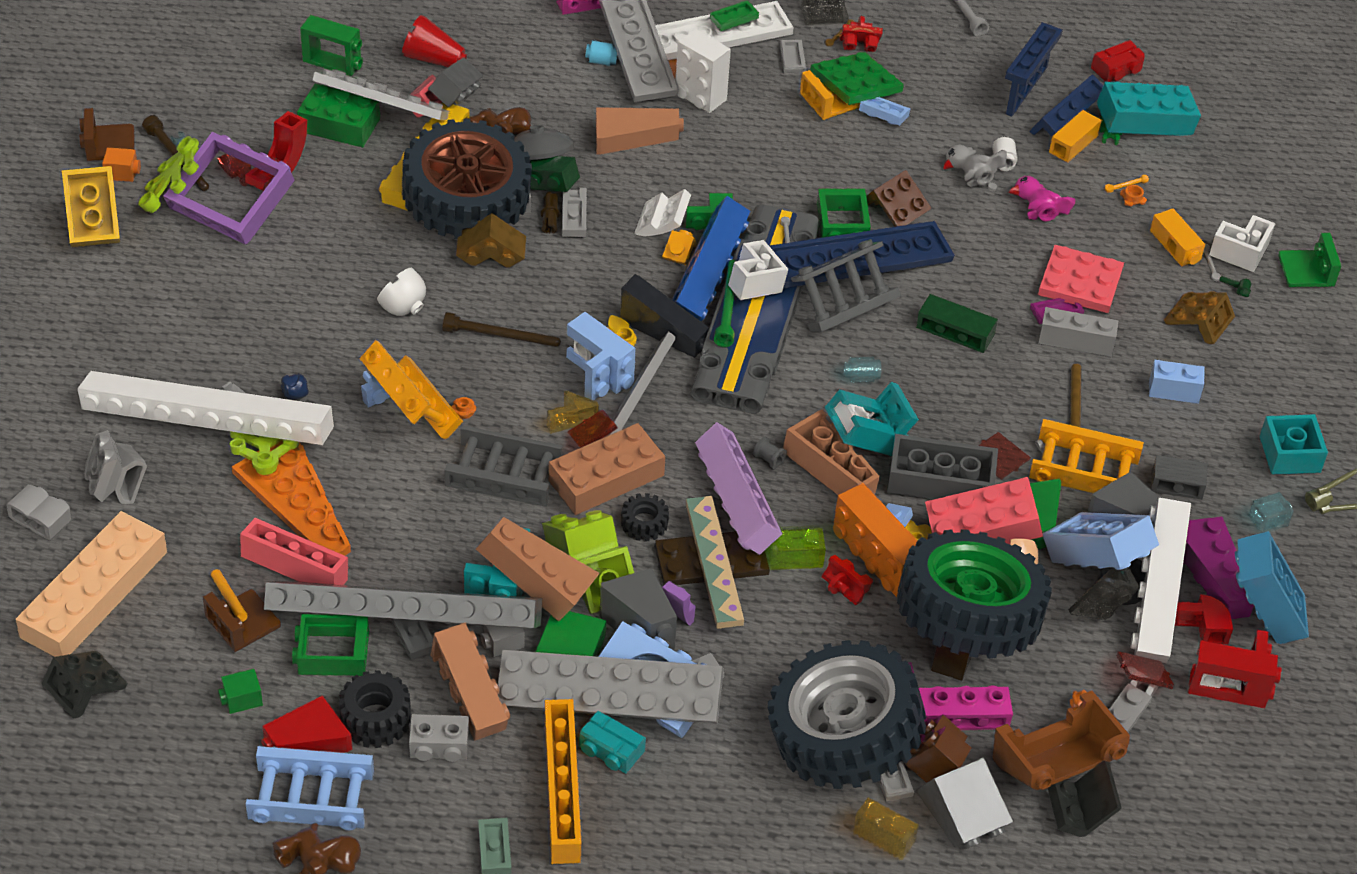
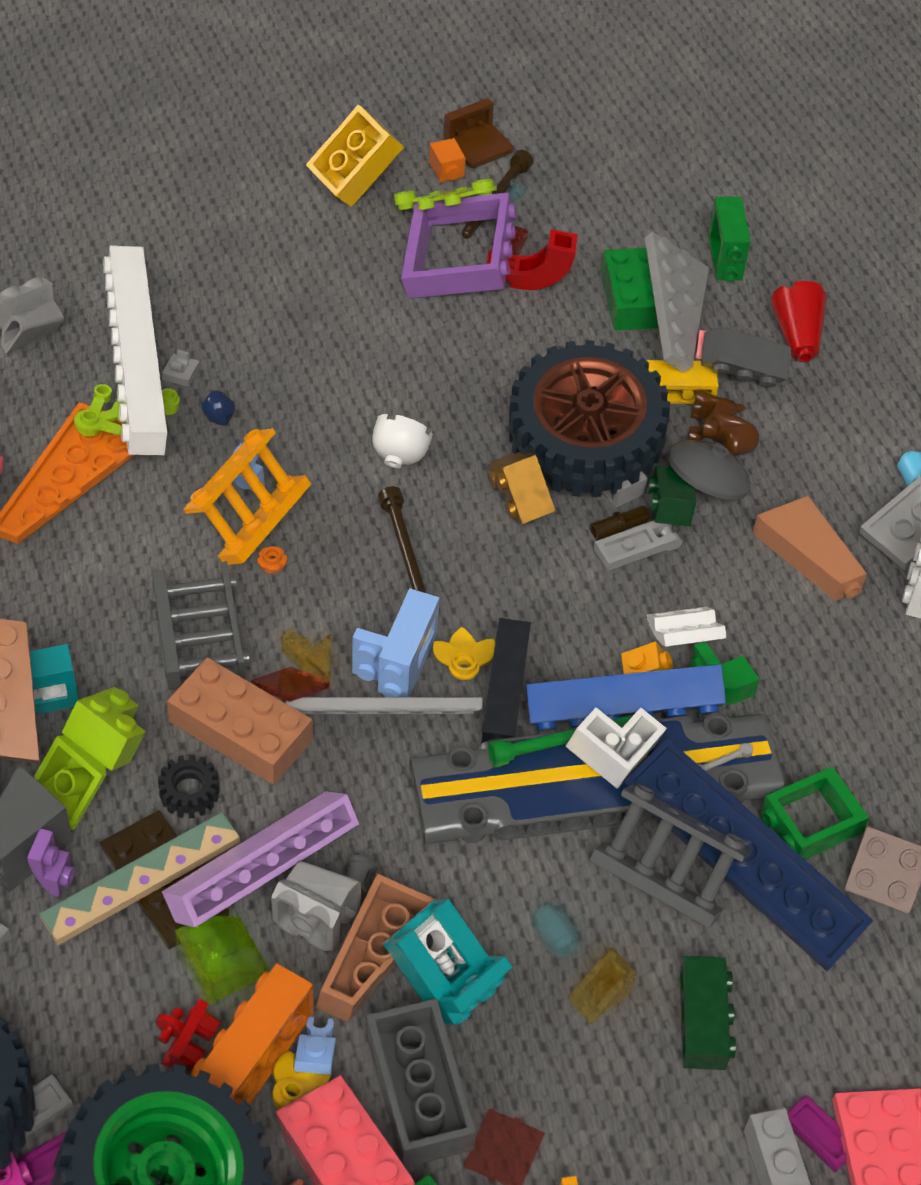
camera: 65 degrees right, 5 degrees up
(788, 474) = (315, 904): none -> light grey piece
(915, 360) = (603, 986): none -> clear yellow slope

